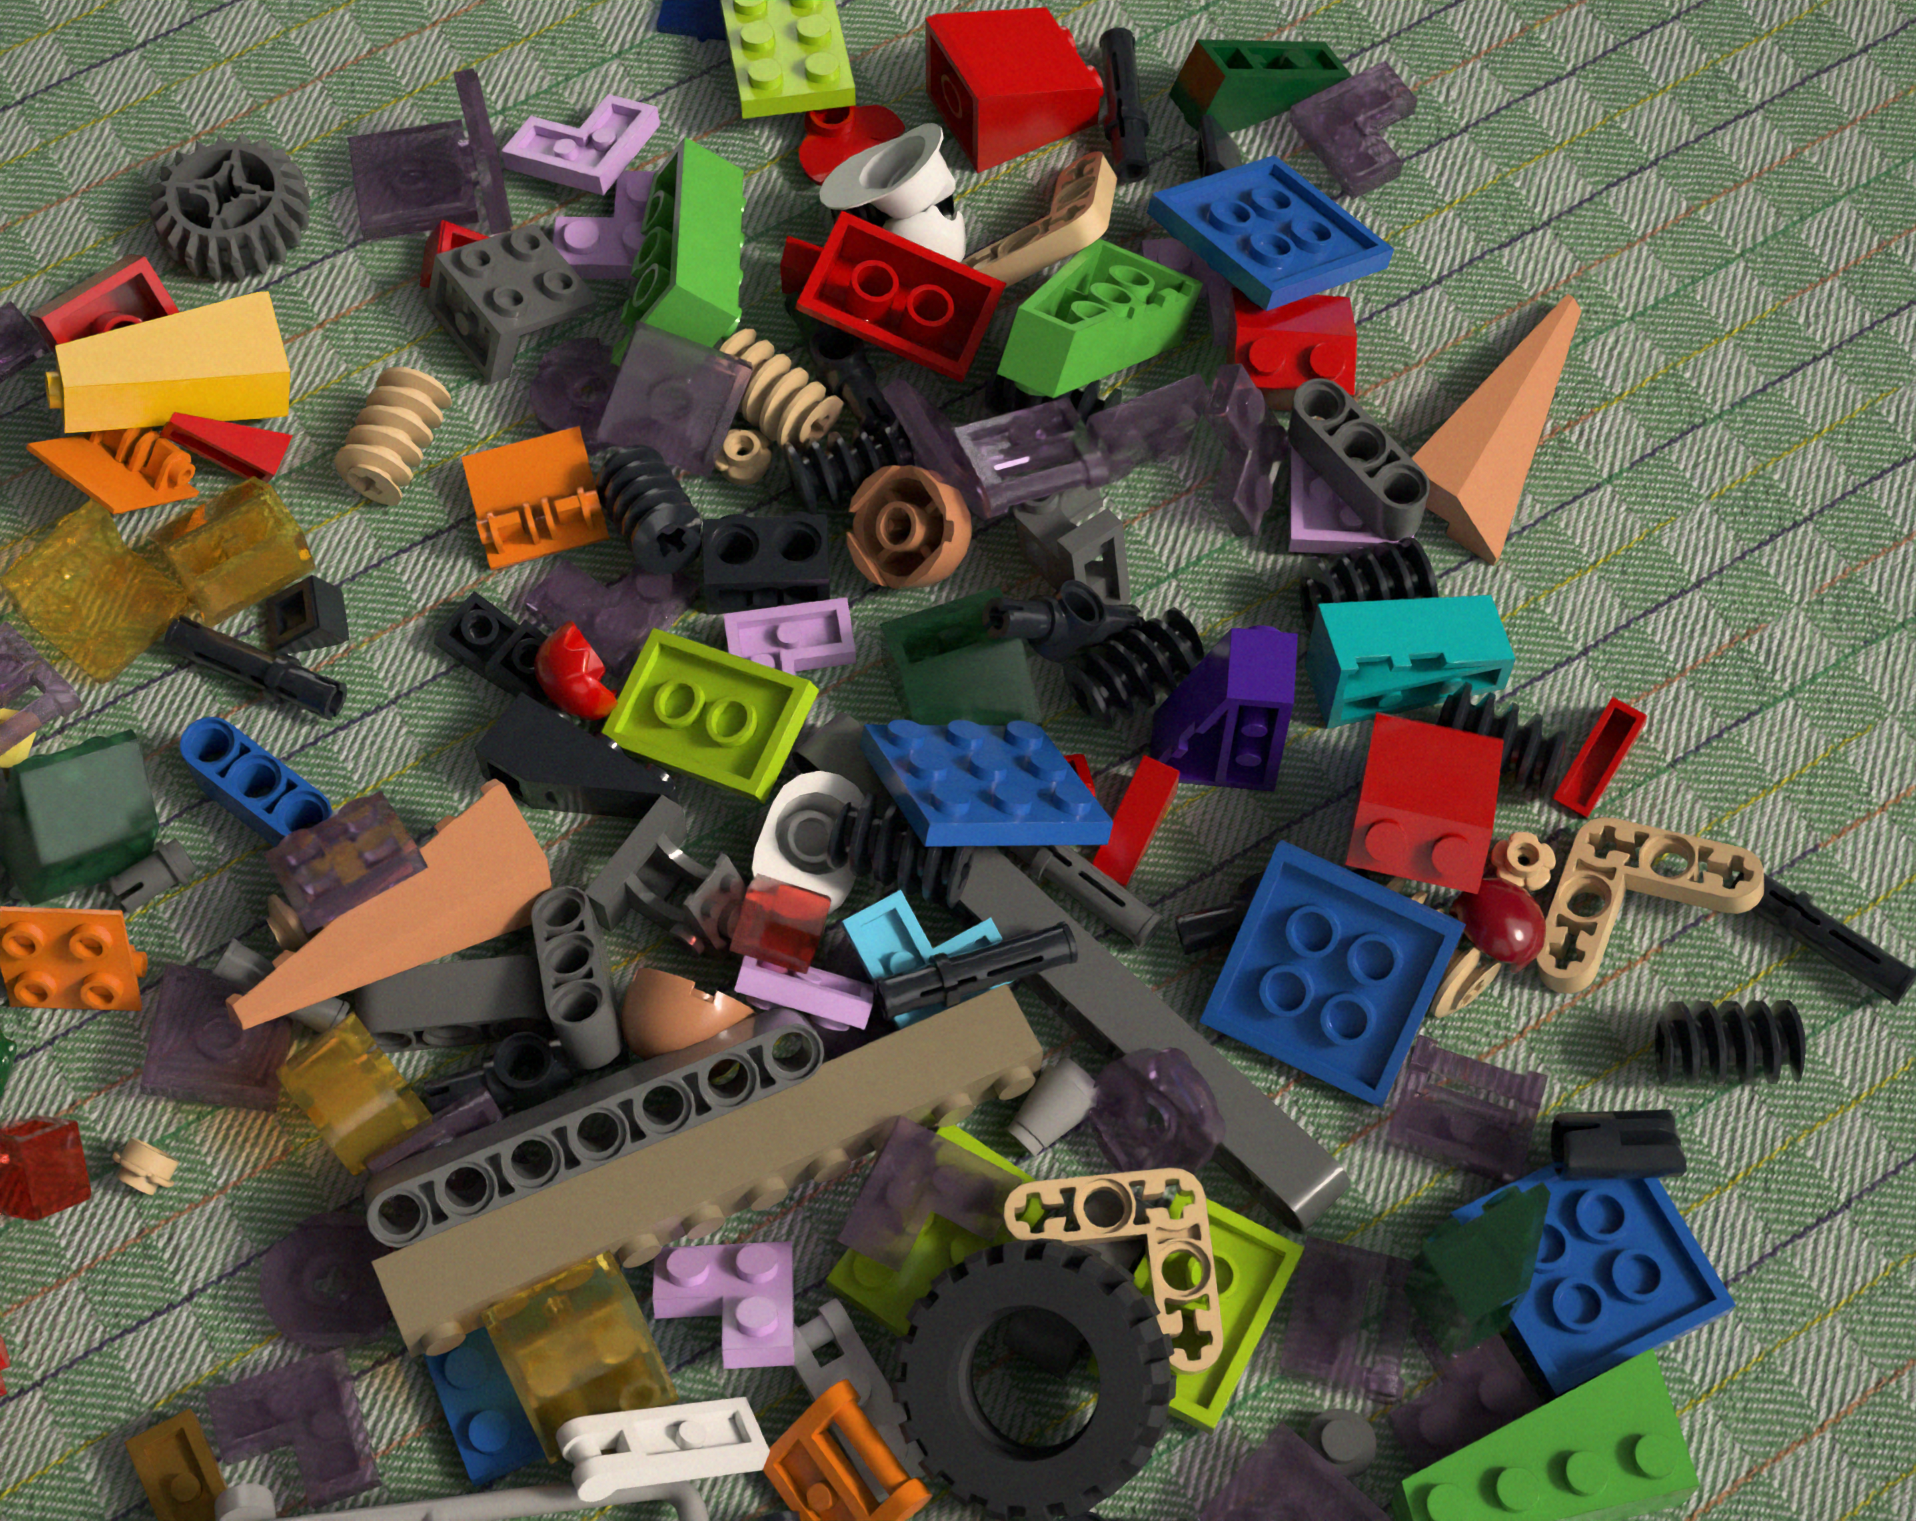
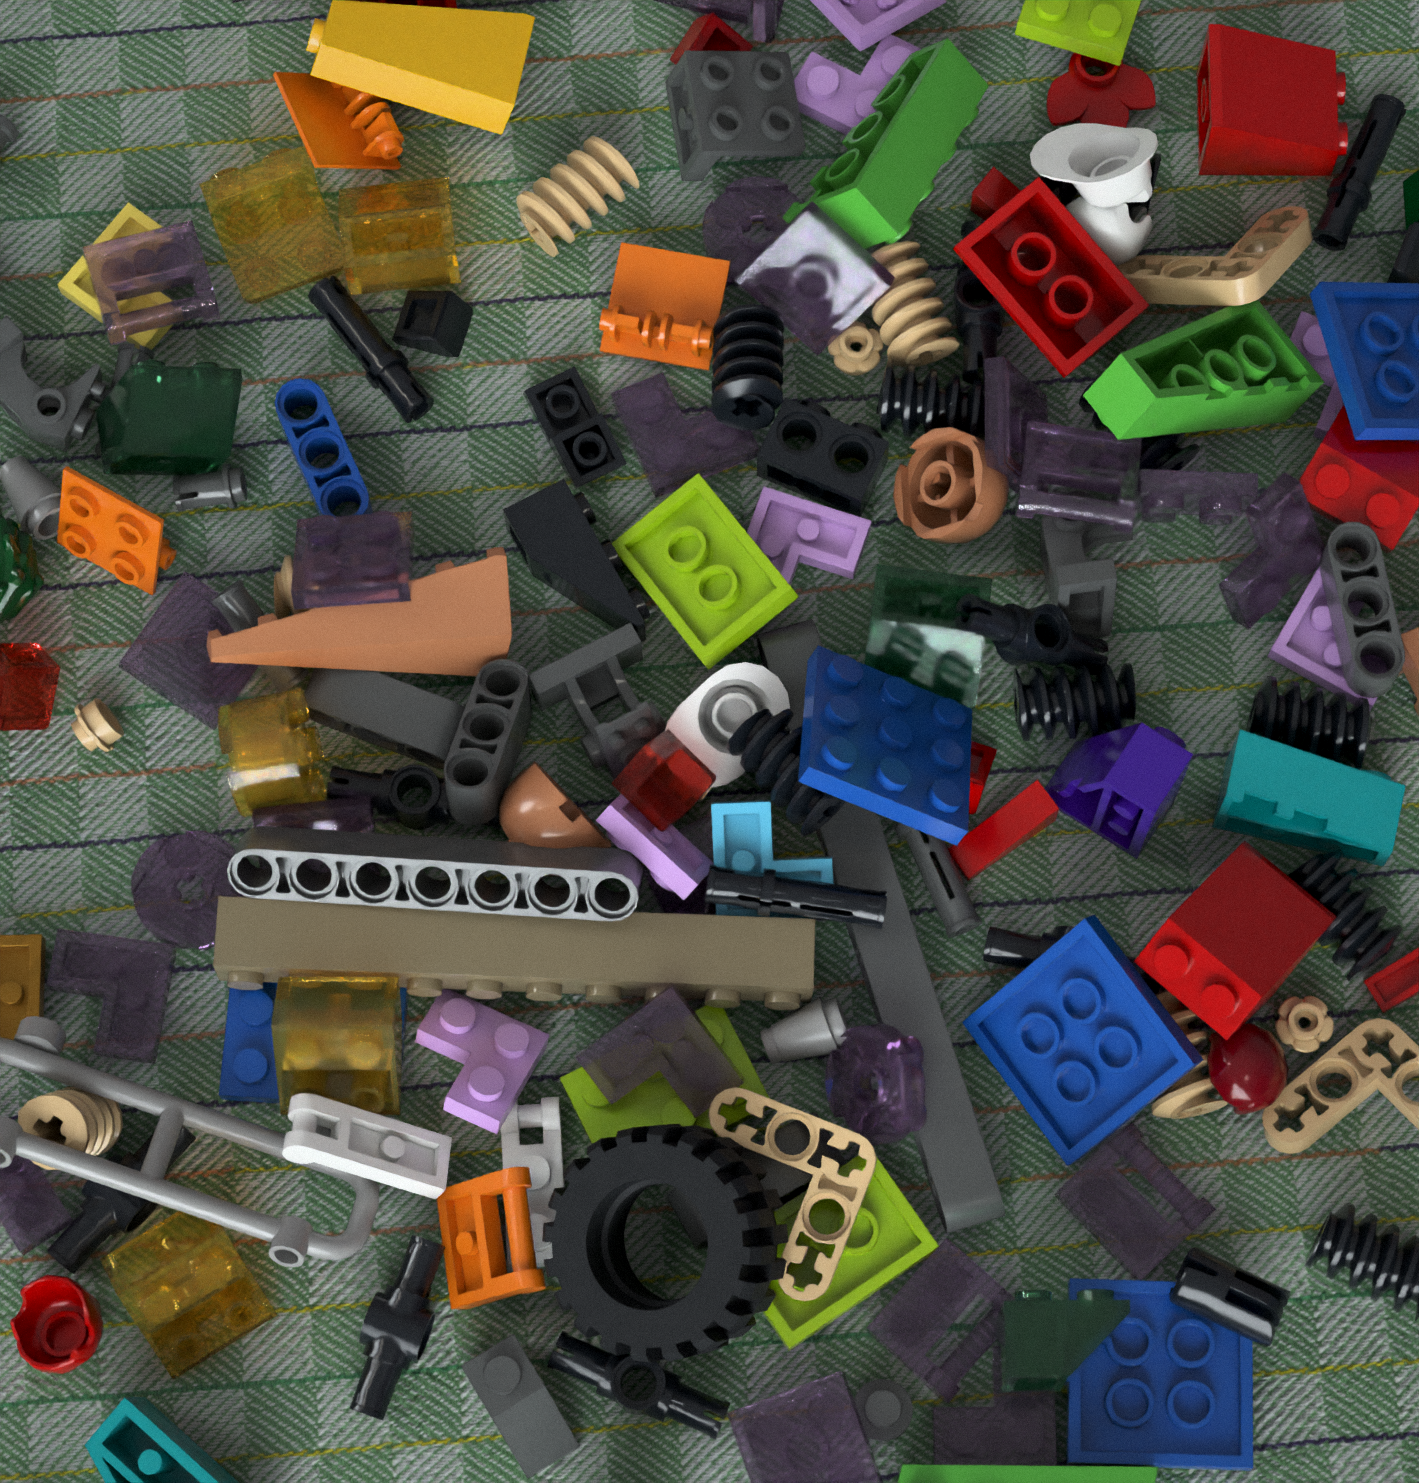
camera: 30 degrees right, 10 degrees up
(230, 445) = (448, 149): red piece -> none
(572, 674) = (612, 480): red hair -> none

